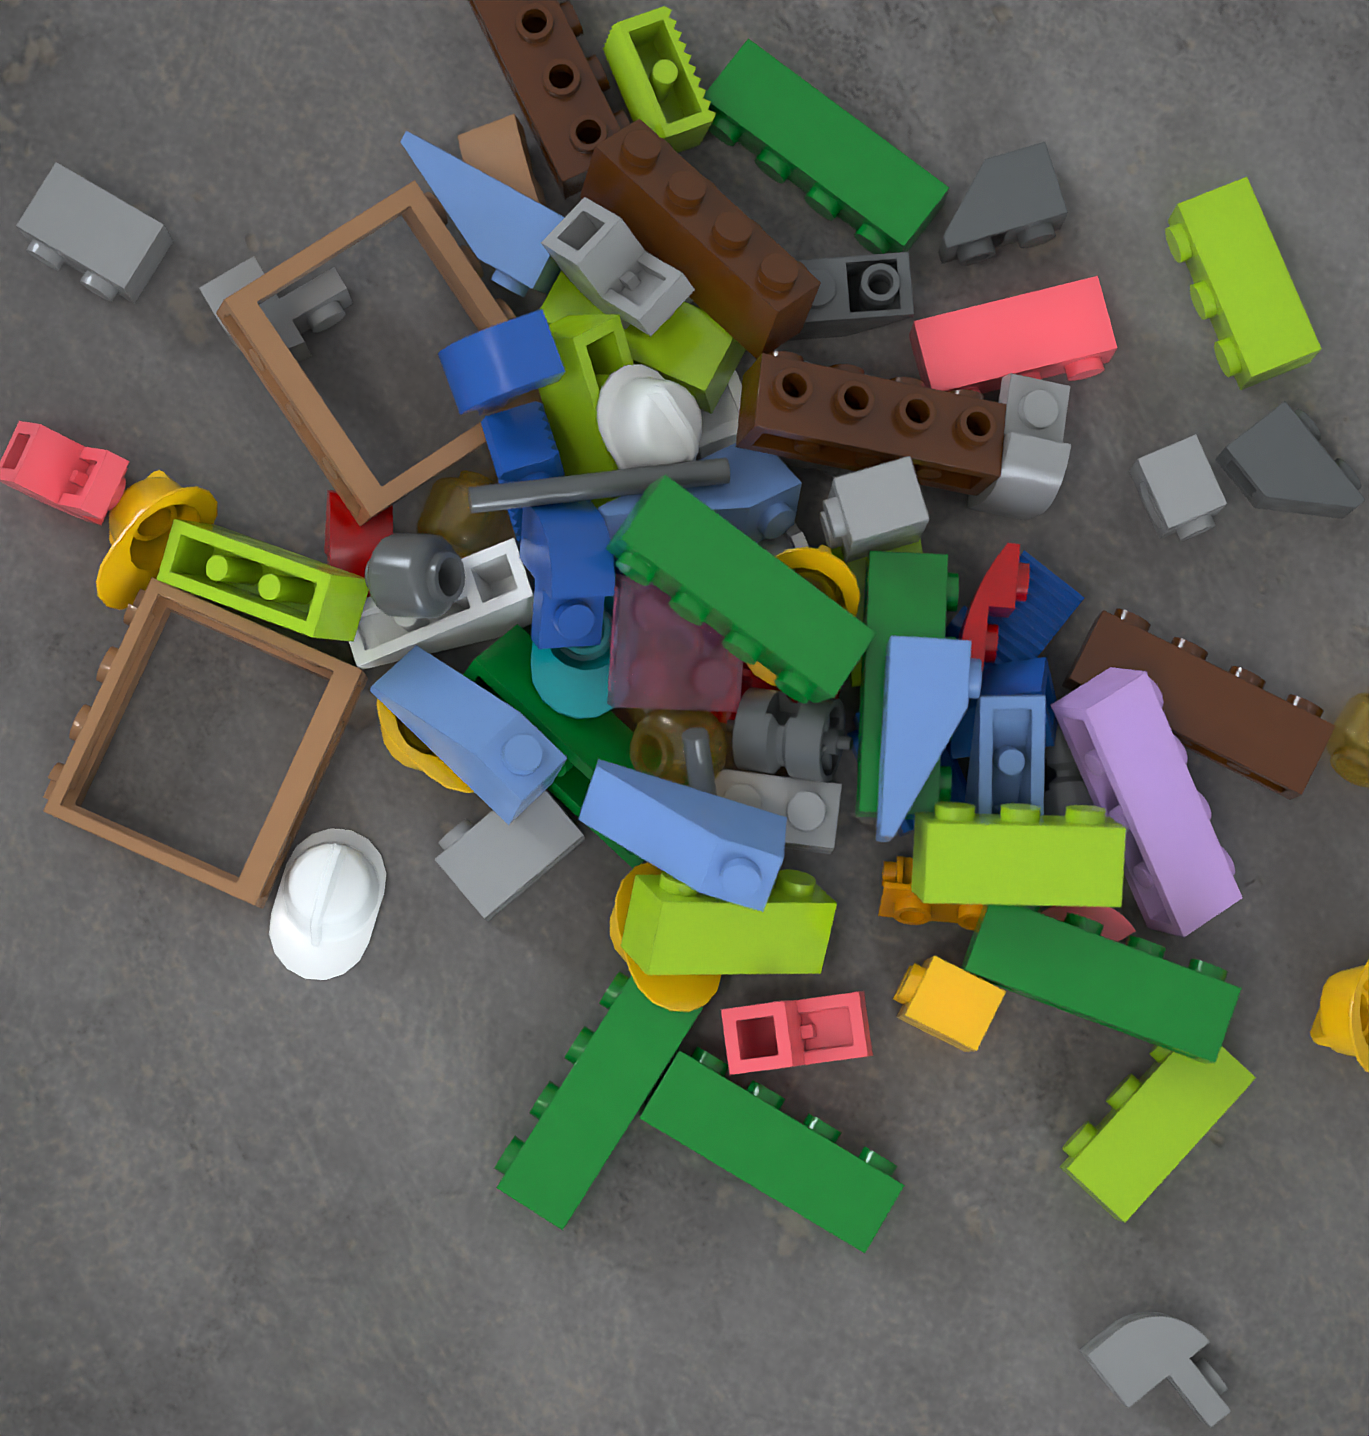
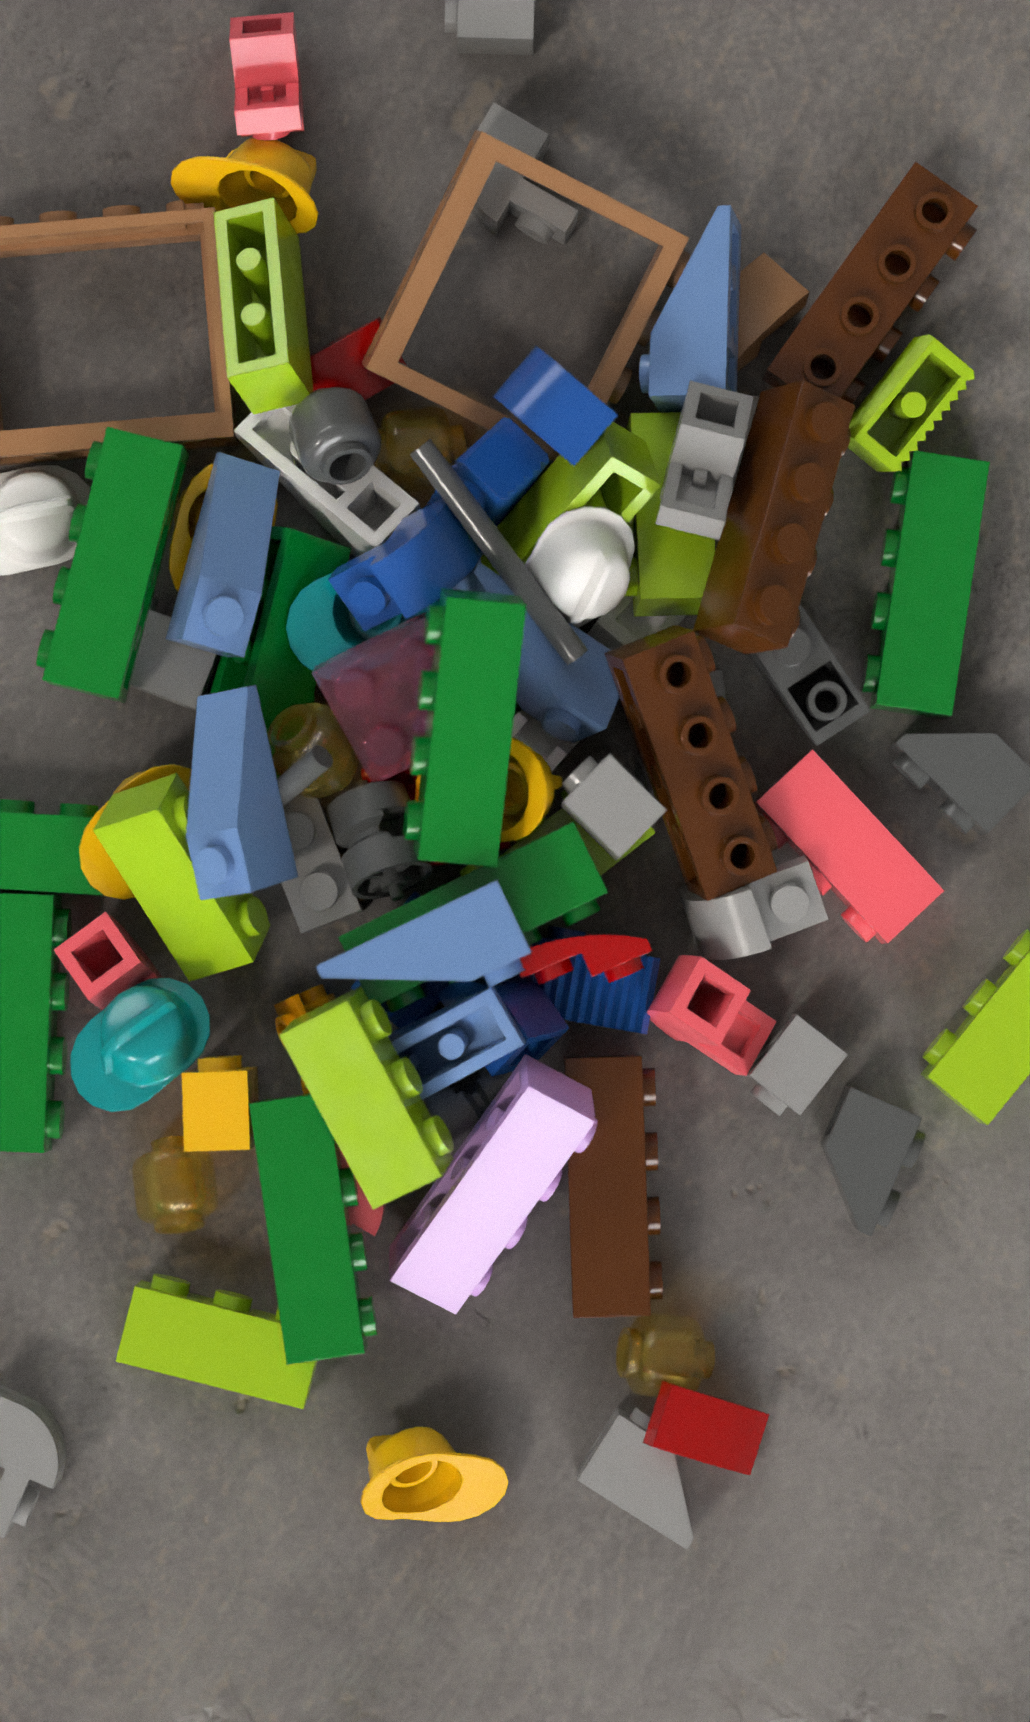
camera: 65 degrees right, 5 degrees up
(419, 831) = (114, 564): none -> green brick
(854, 1046) = (139, 1044): none -> teal piece
(994, 1087) = (174, 1186): none -> clear yellow head
(1094, 533) = (711, 1014): none -> coral brick

